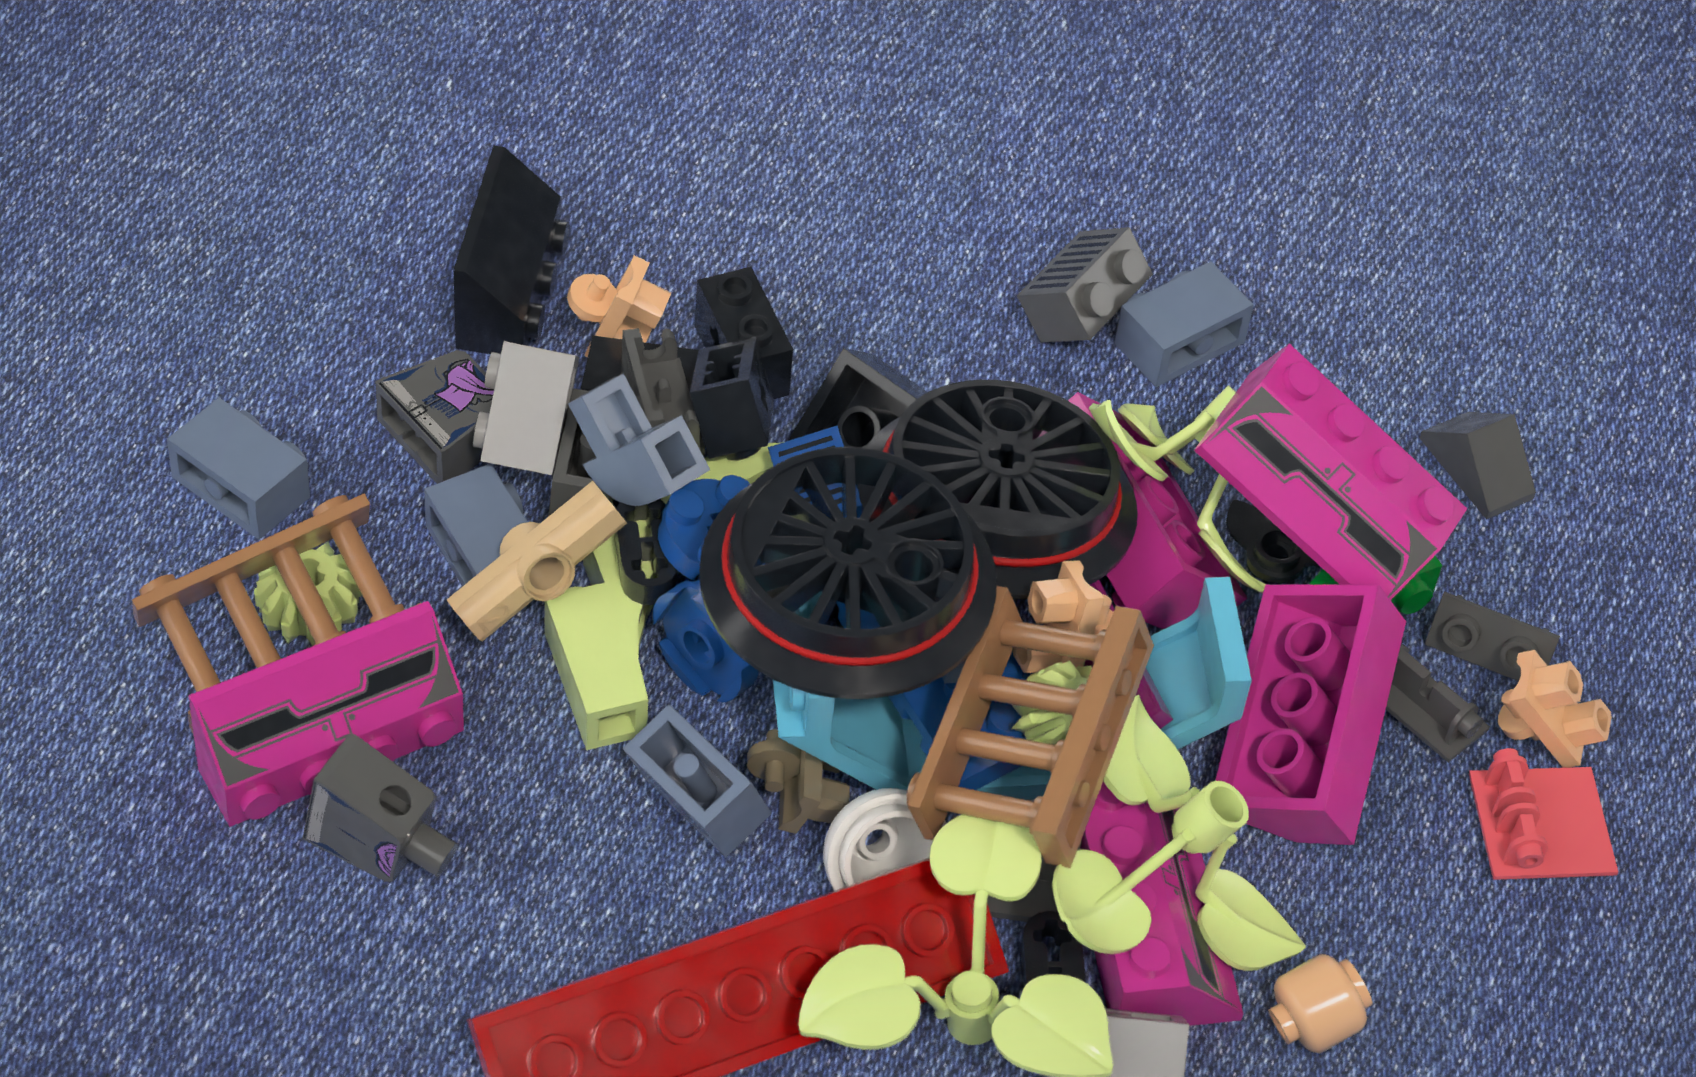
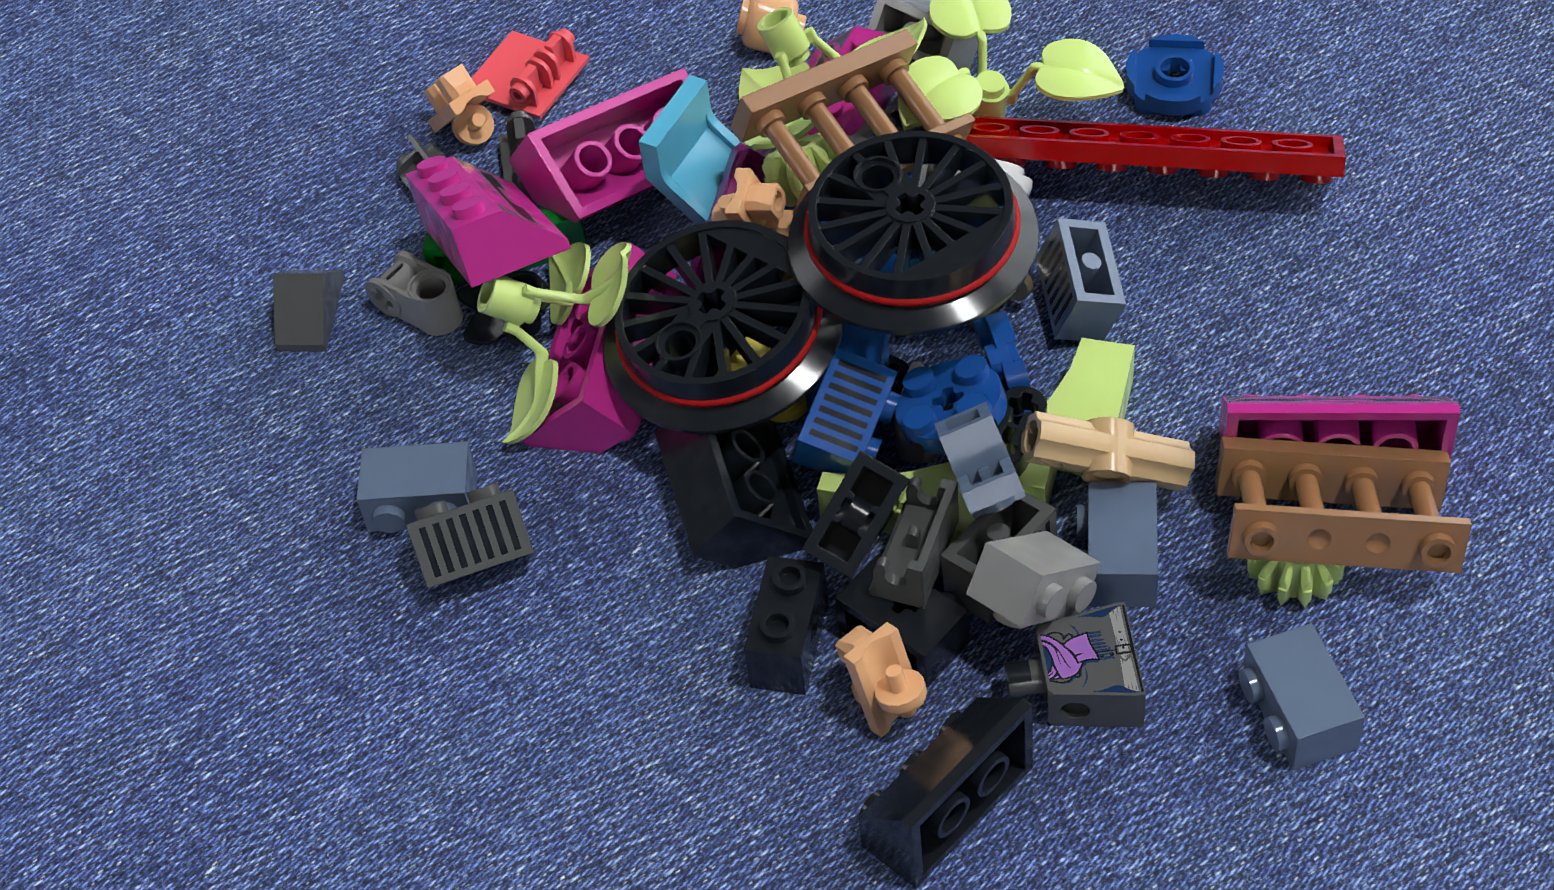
camera: 135 degrees left, 0 degrees up
(374, 814) = (1337, 345): dark grey torso -> none

